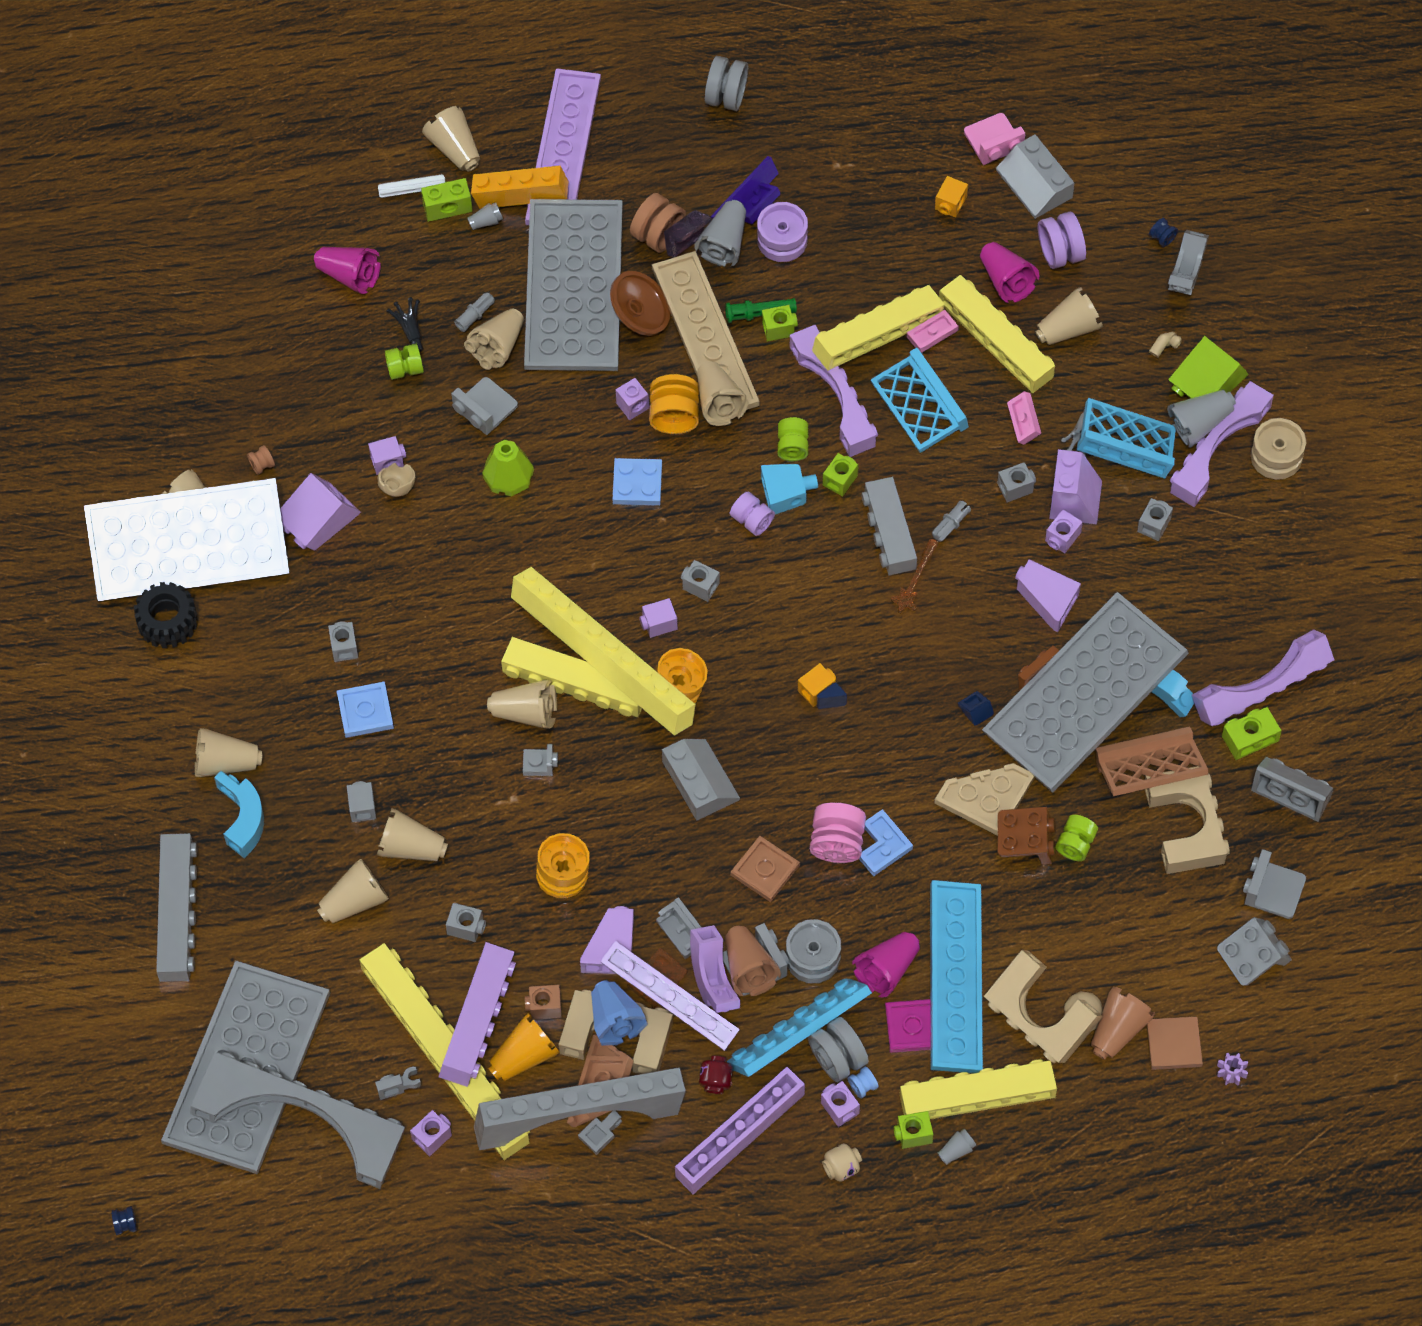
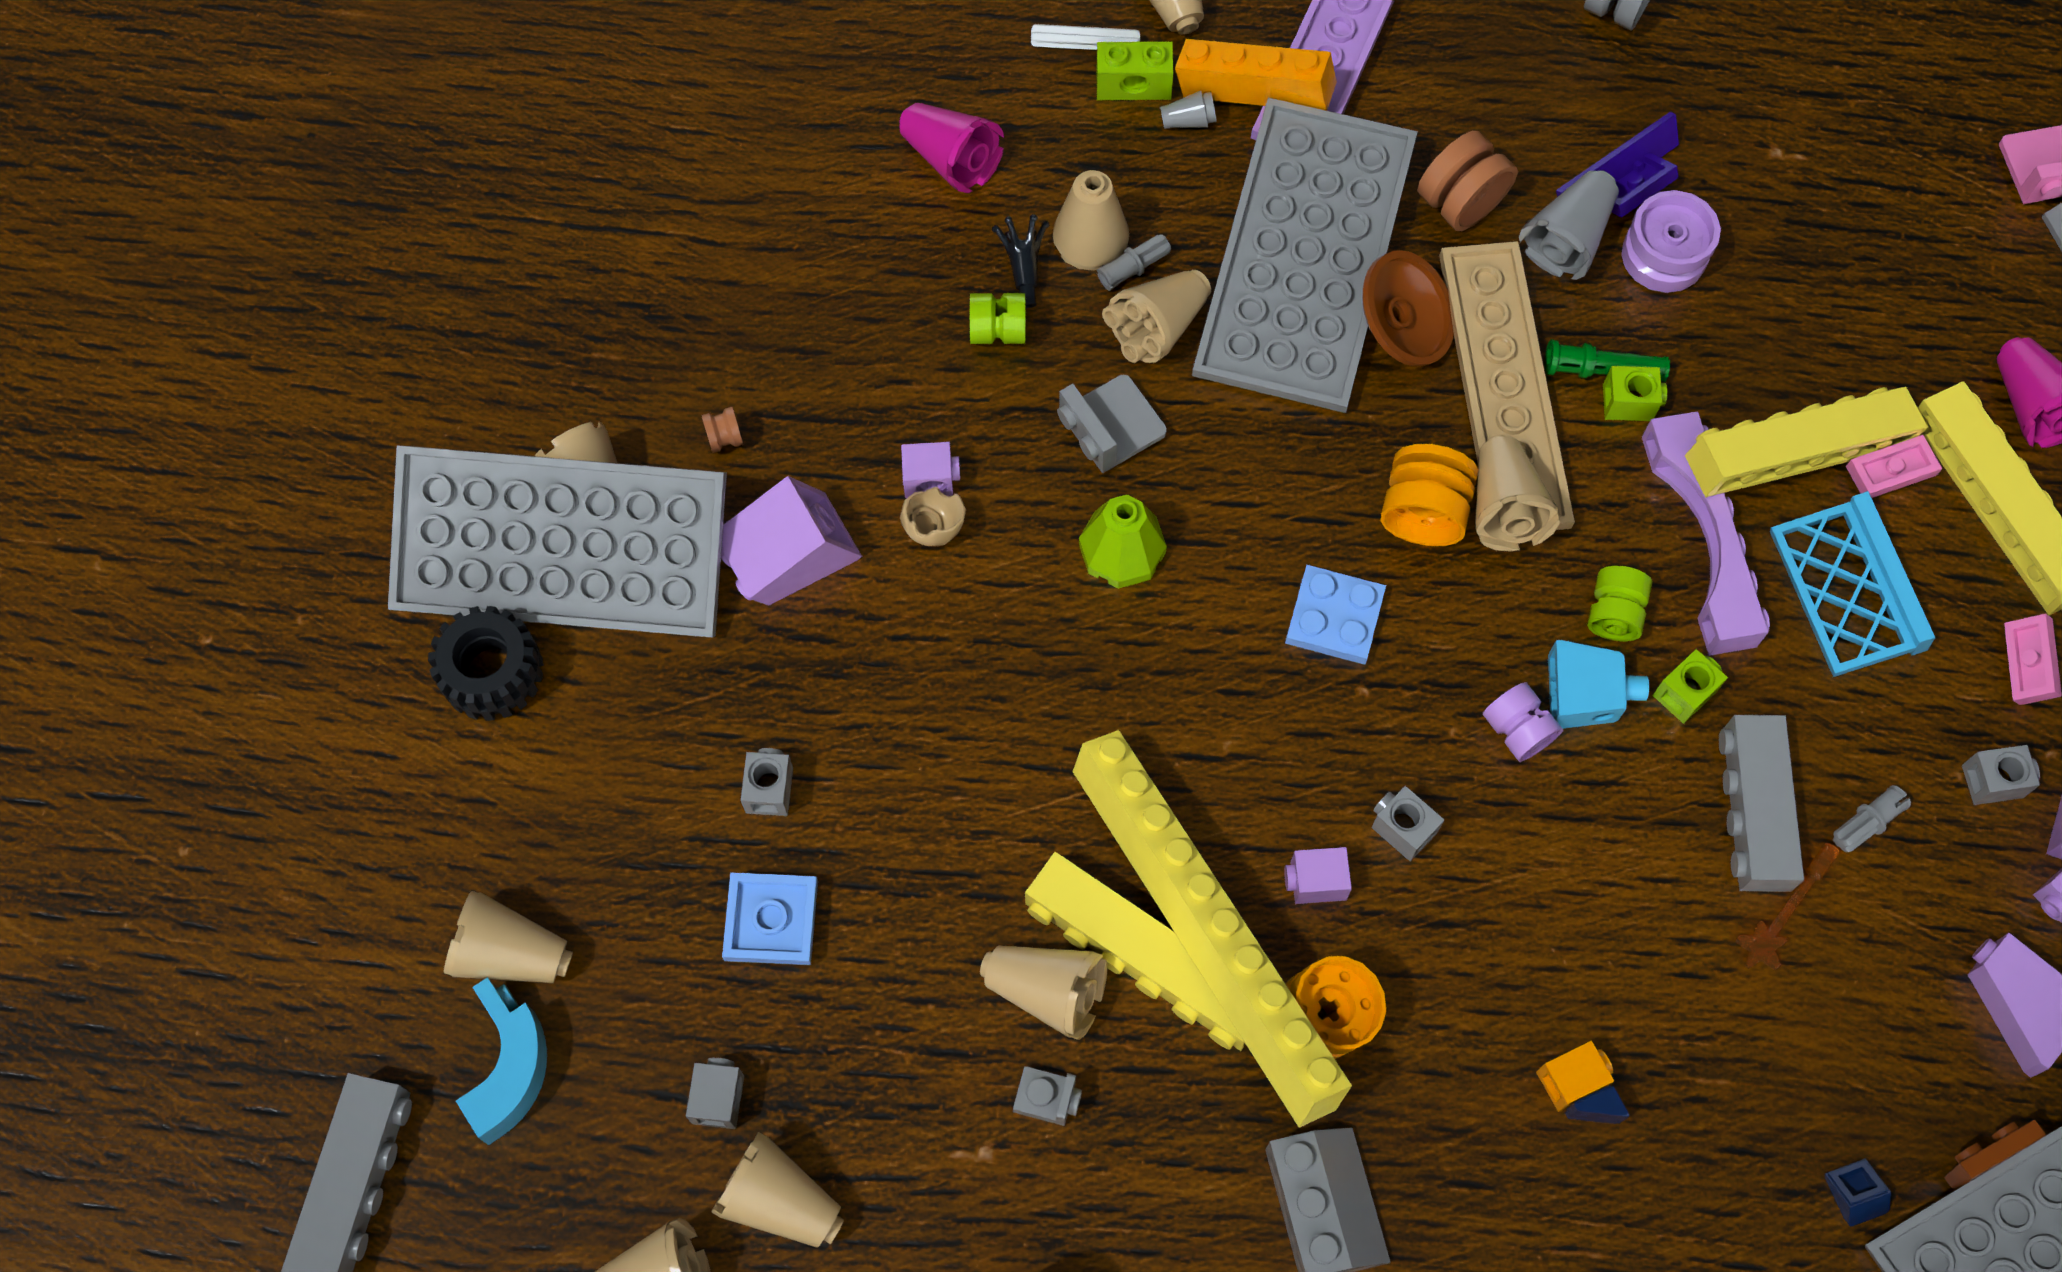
camera: 15 degrees right, 5 degrees up
(444, 295) = (1091, 223): none -> tan cone
(632, 399) = (1359, 468): lavender brick -> none
(685, 232) = (1509, 207): clear purple bracket -> none
(951, 196) = (1964, 244): light orange brick -> none

